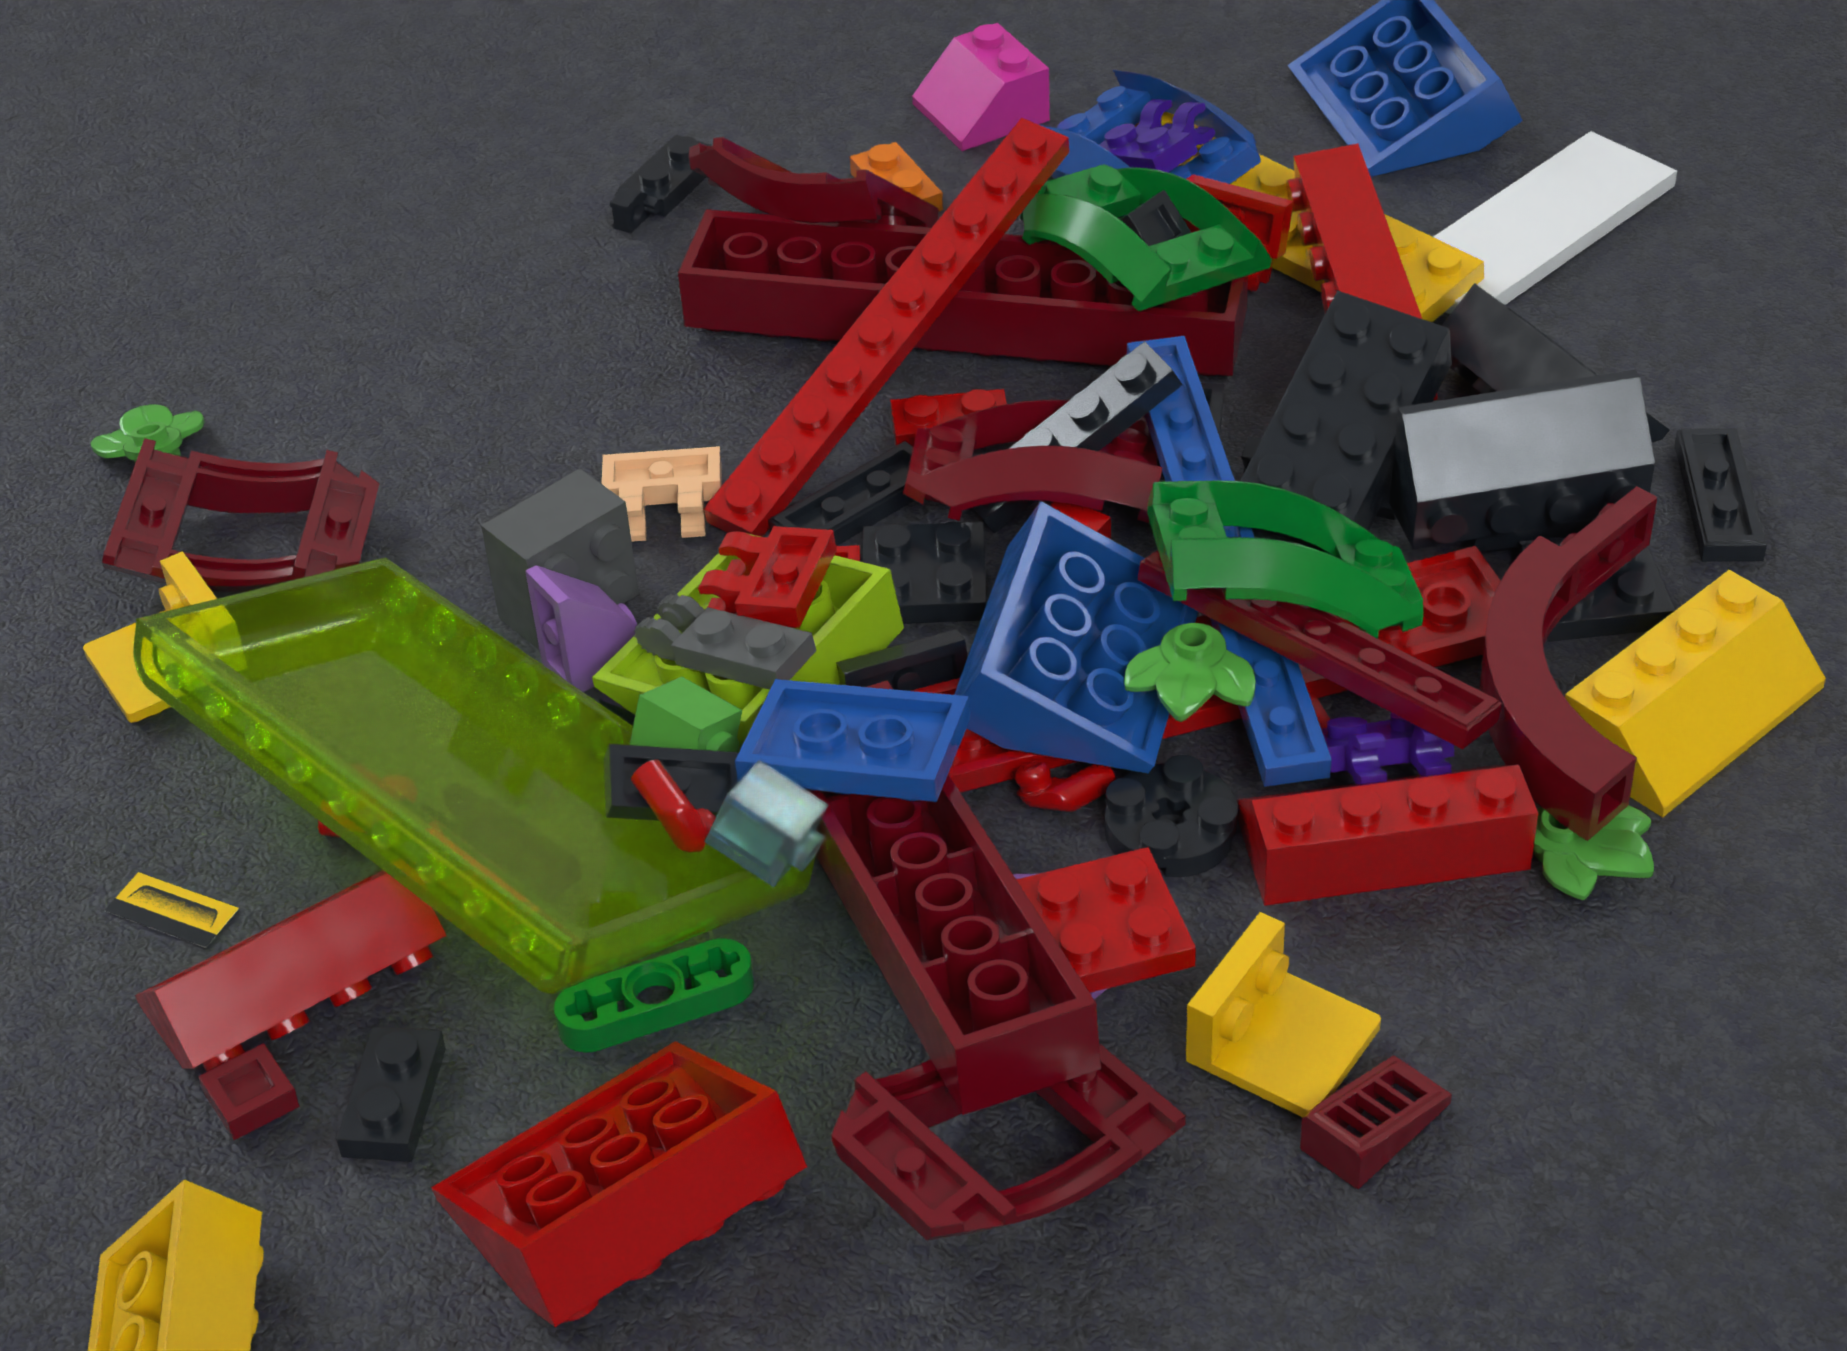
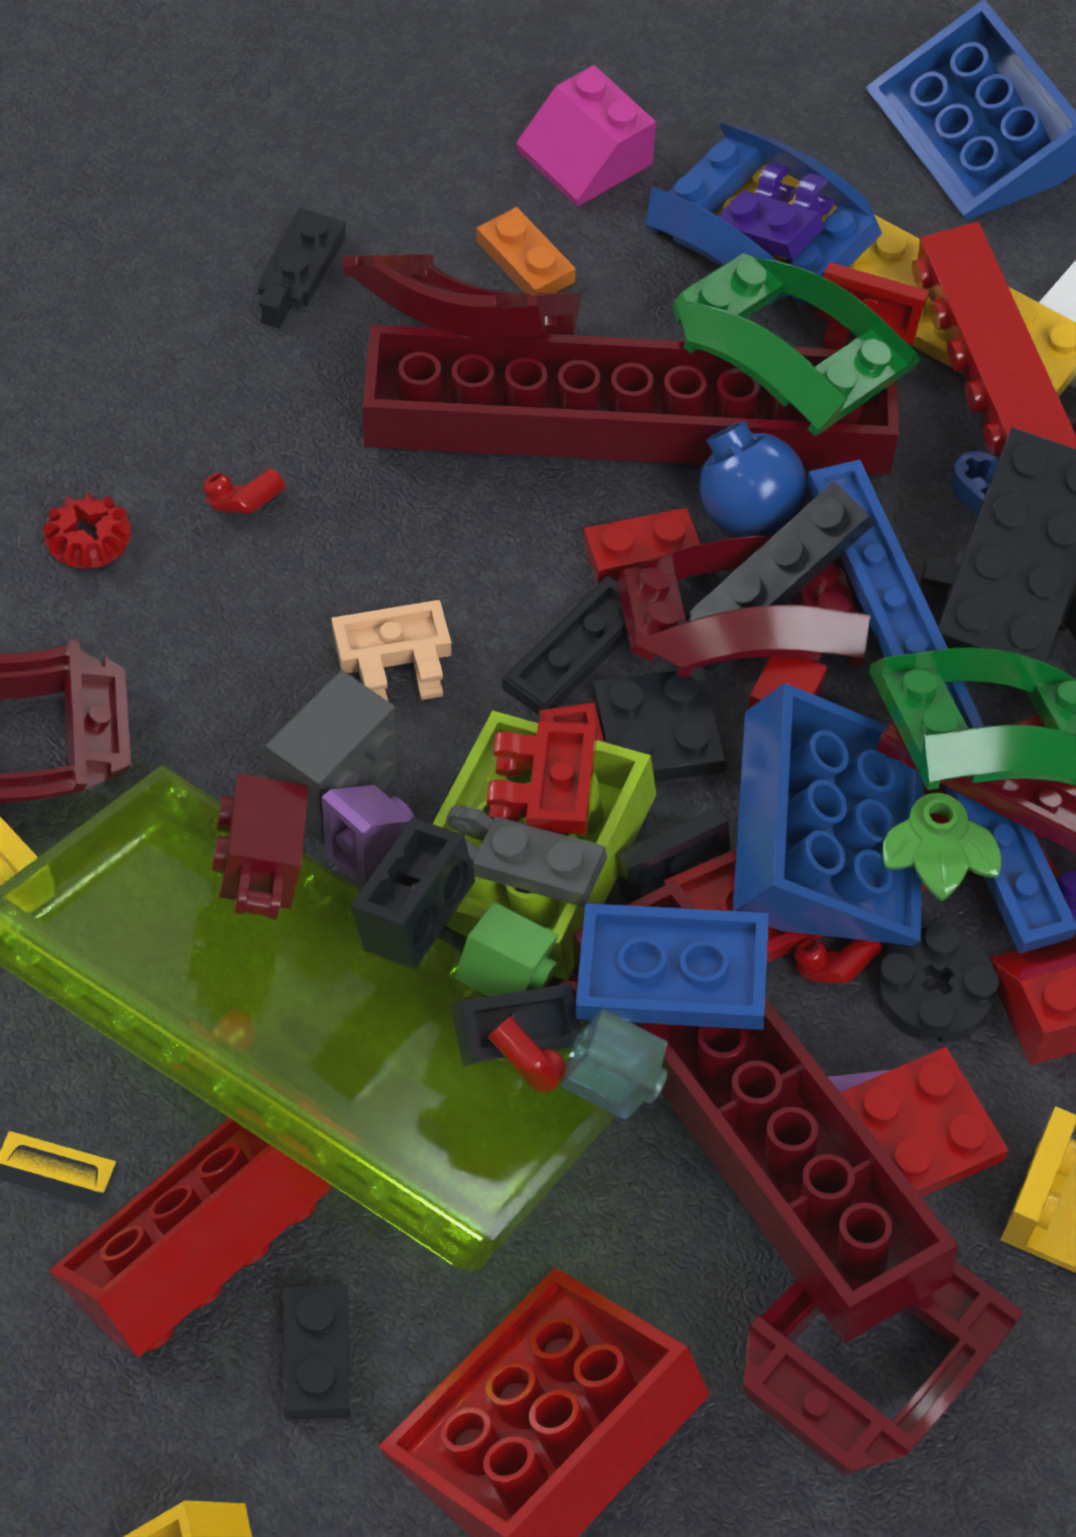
camera: 15 degrees left, 15 degrees up
(248, 1091) = (189, 1369): dark red plate -> none
(365, 388) = (78, 548): none -> red gear
(455, 611) = (261, 844): none -> dark red brick
(549, 361) = (242, 498): none -> red arm
(595, 657) = (413, 893): none -> black brick
(612, 1027) = (574, 1216): green beam -> none
(886, 331) = (580, 464): red plate -> none
(1065, 349) = (751, 482): none -> blue brick
(1156, 220) = (813, 333): black plate -> none

